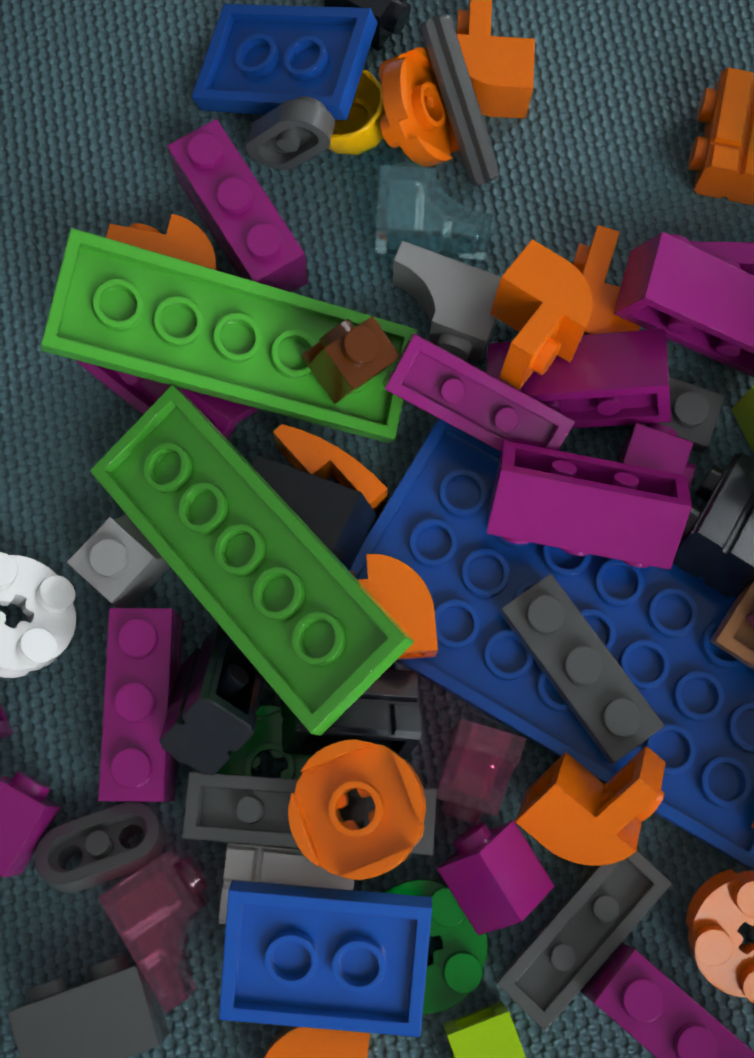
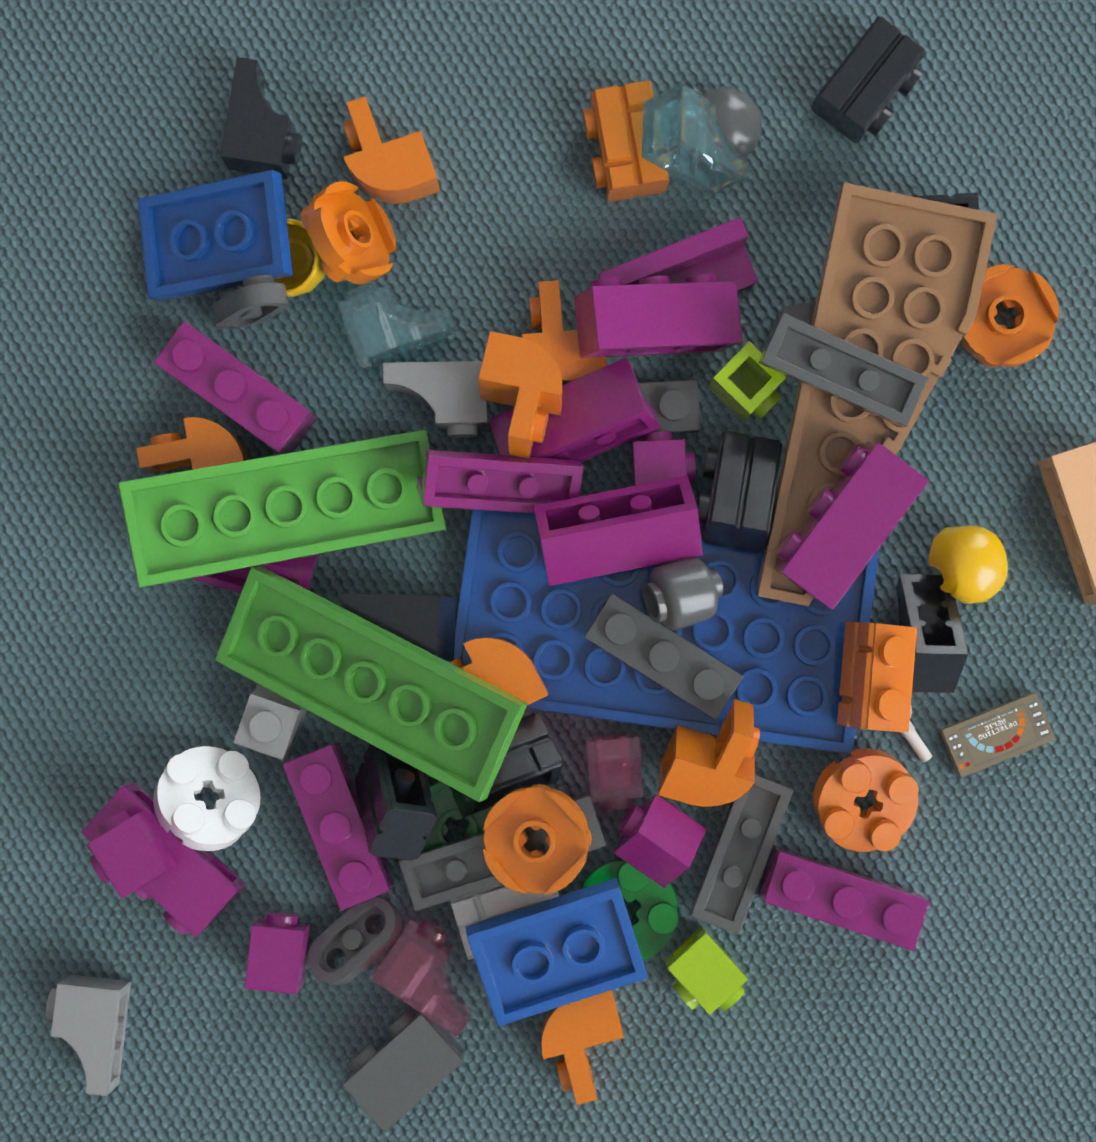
camera: 20 degrees left, 10 degrees up
(325, 460) = (392, 573): orange slope -> none
(350, 357) = (383, 487): reddish brown brick -> none
(459, 99) = (379, 213): dark grey axle -> none
(630, 603) = (682, 593): none -> dark grey head

